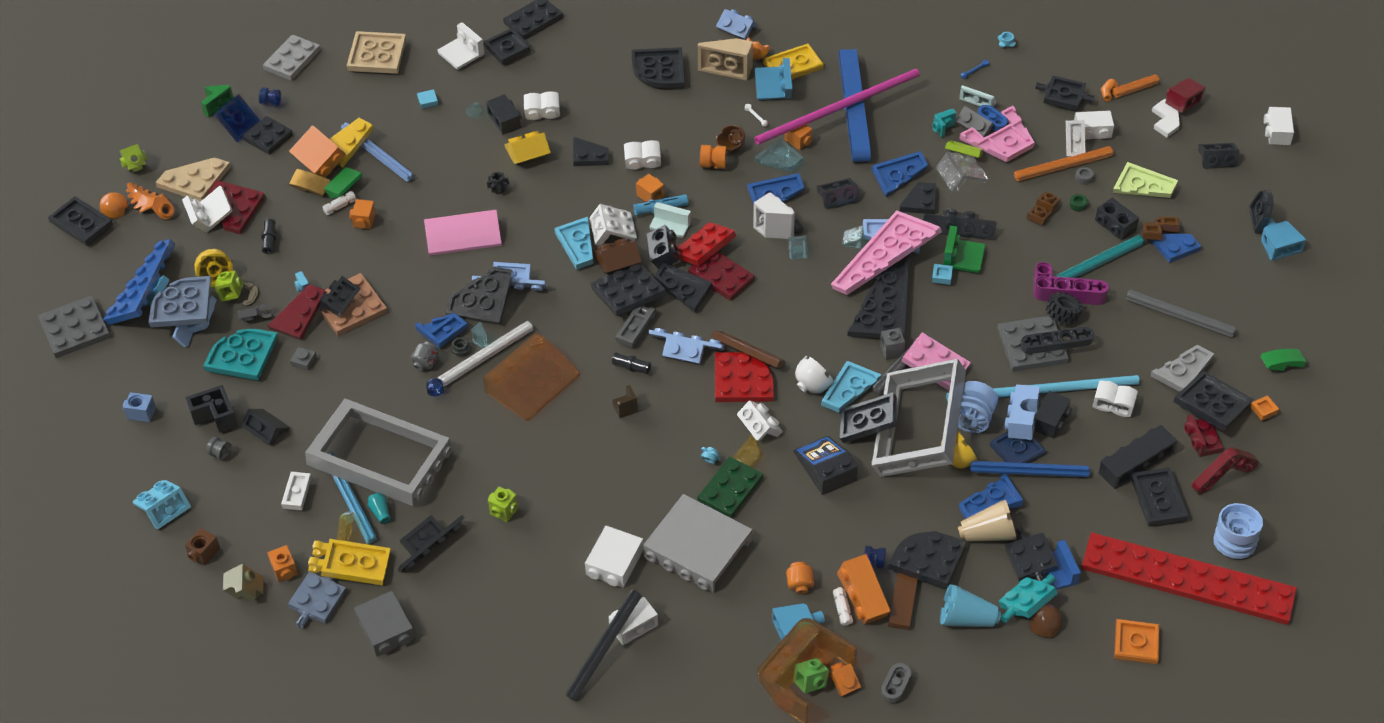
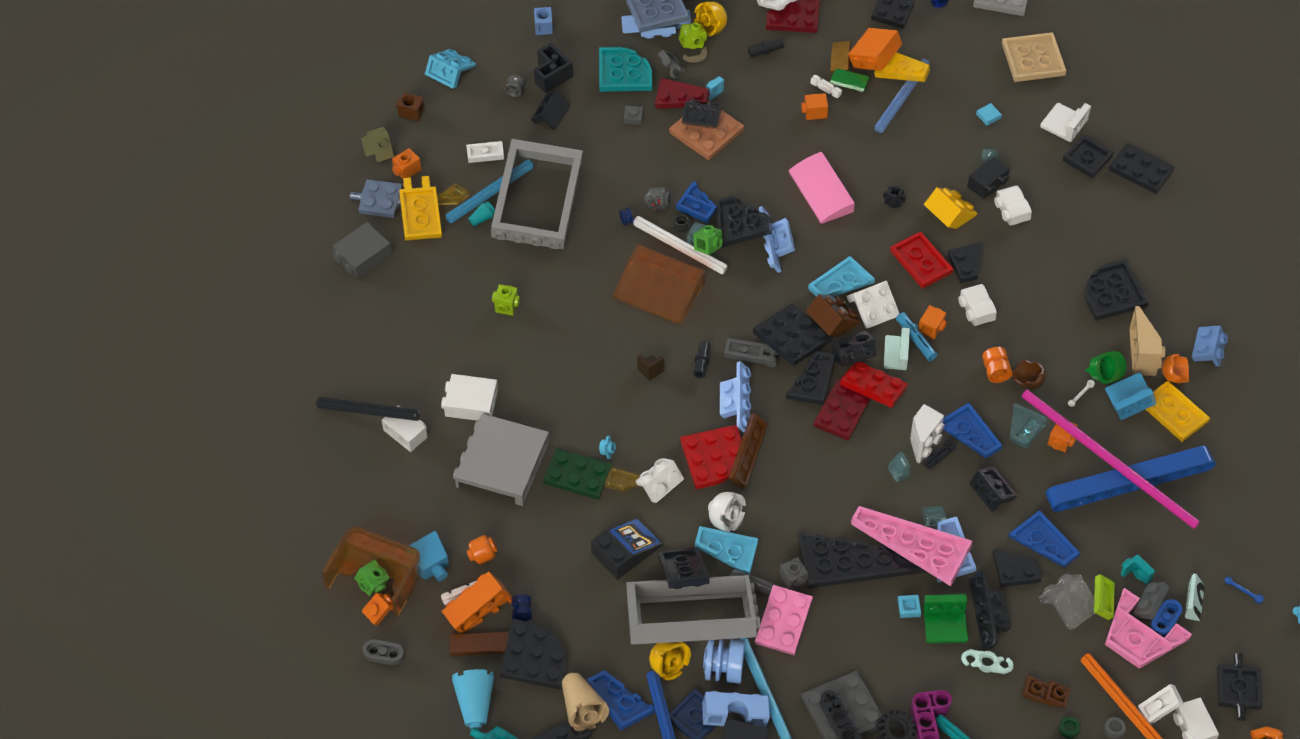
camera: 75 degrees right, 5 degrees up
(425, 536) = (456, 252): black bracket -> none
(498, 323) = (708, 240): none -> bright green brick
(576, 181) = (921, 260): none -> red plate
(739, 92) = (1107, 367): none -> green piece
(1013, 233) = (995, 667): none -> light aqua piece

